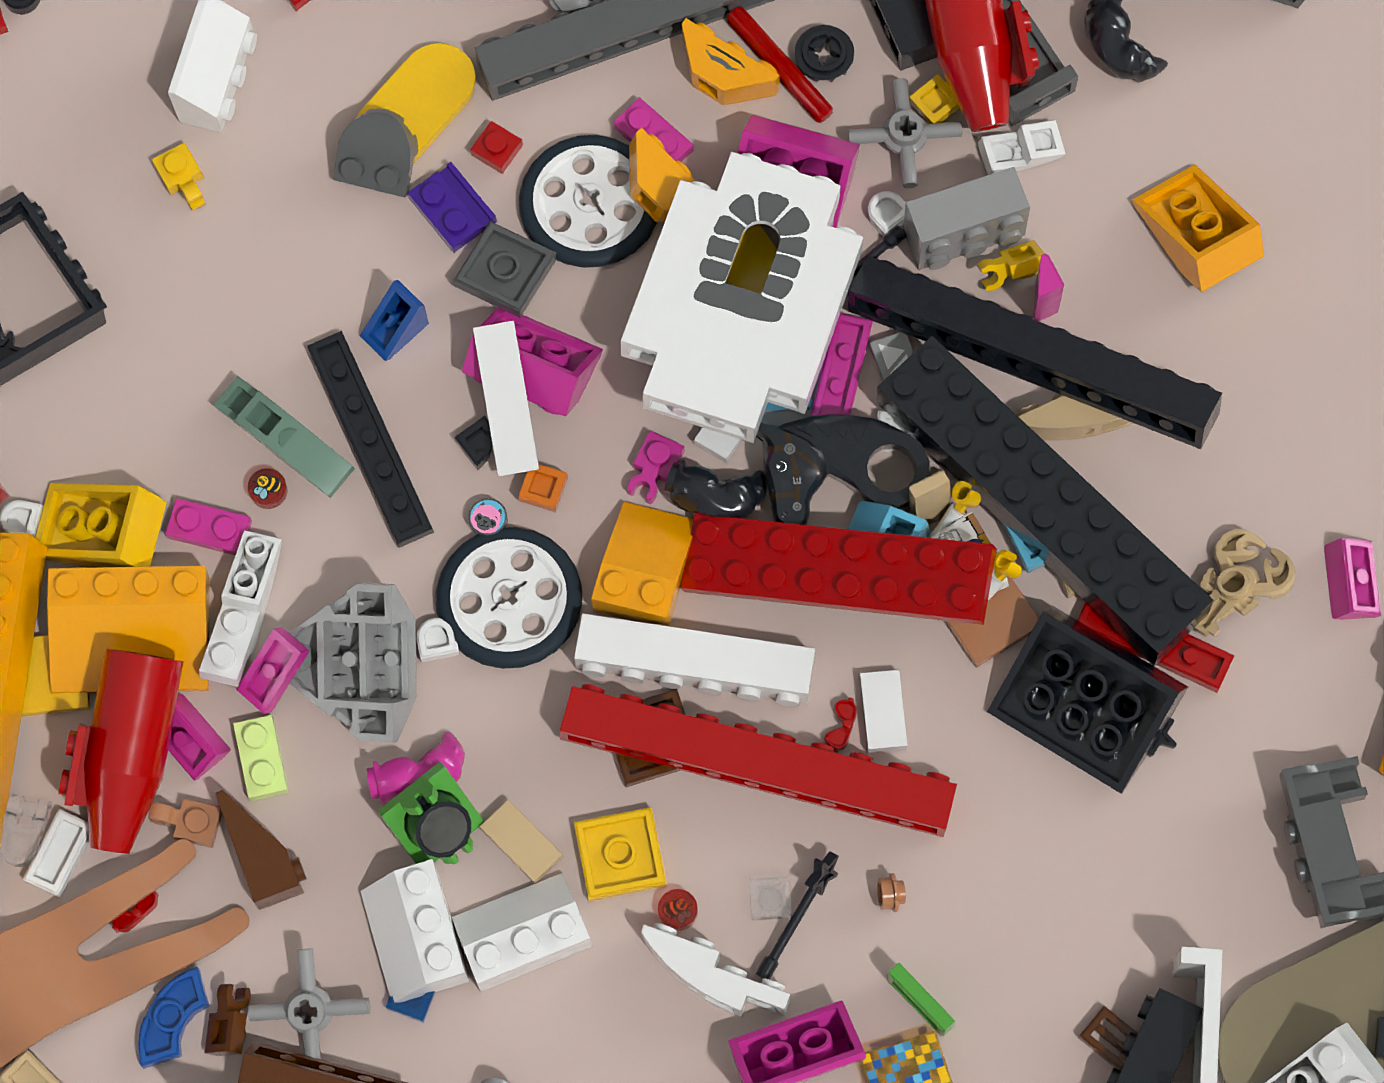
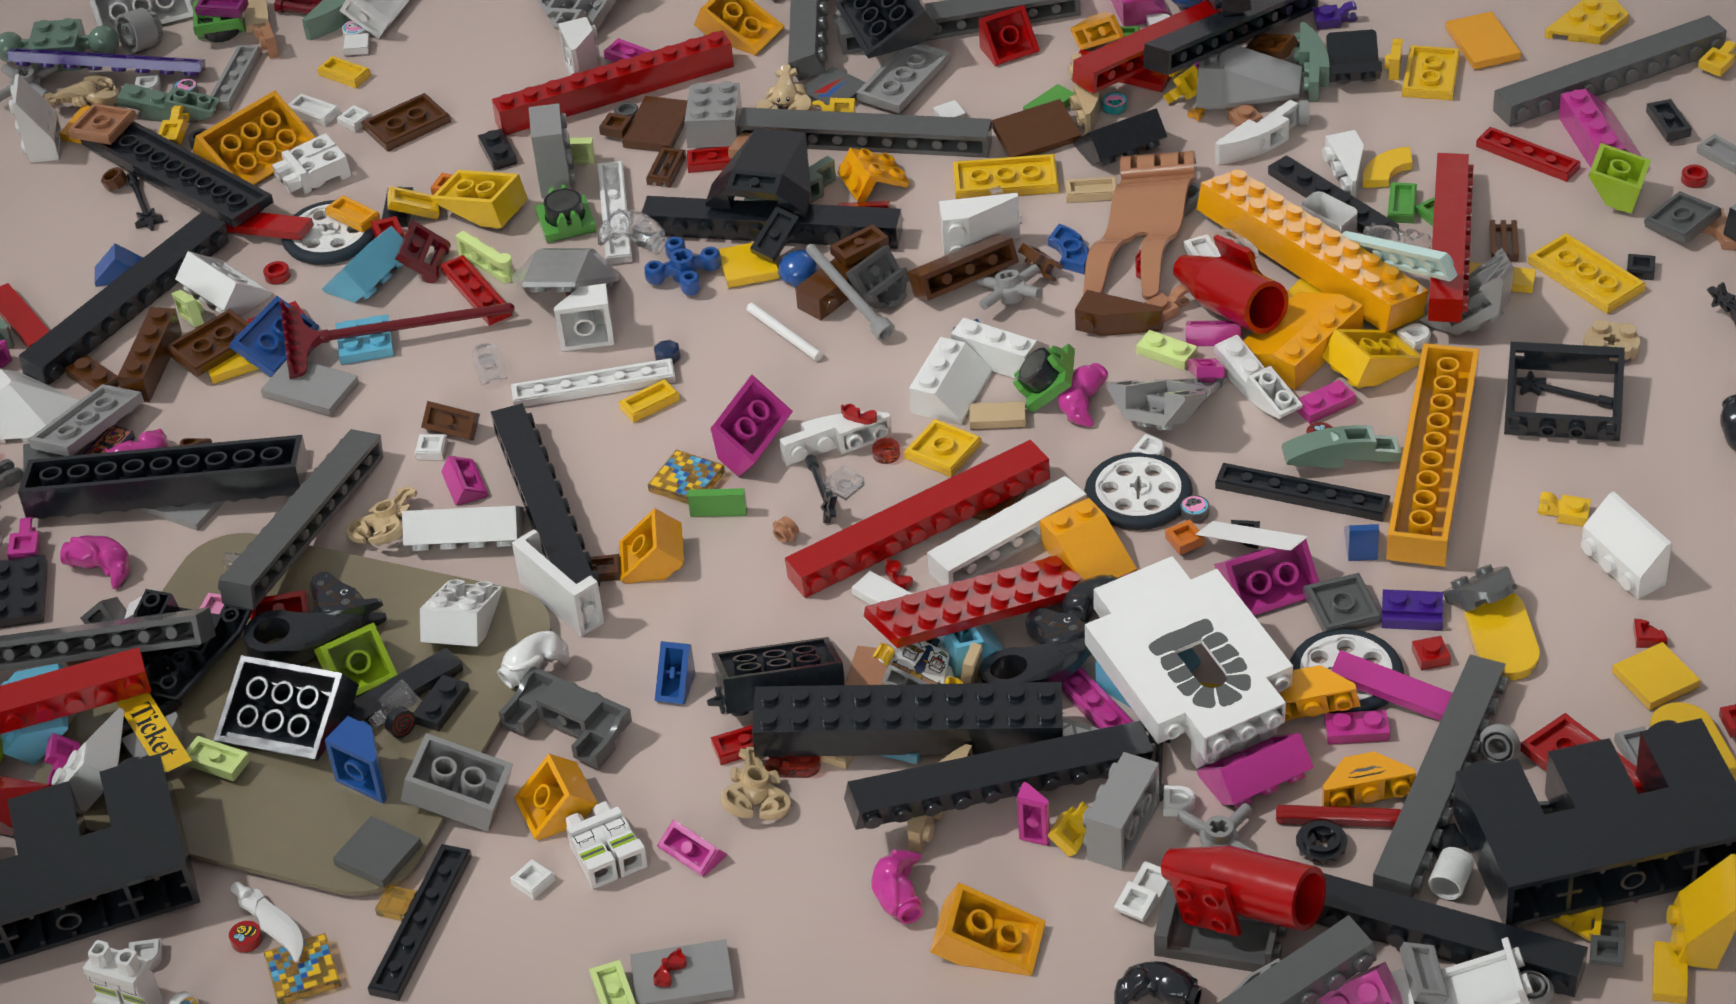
camera: 135 degrees right, 30 degrees down
(214, 340) = (1433, 455): none -> light orange brick
(583, 133) = (1392, 685): none -> dark pink tile
(672, 940) = (853, 414): none -> red piece
(1049, 998) = (651, 549): none -> light orange slope
(1184, 797) = (674, 672): none -> blue slope
(1231, 350) = (894, 889): none -> dark pink animal
(1320, 944) = (531, 653): none -> white animal

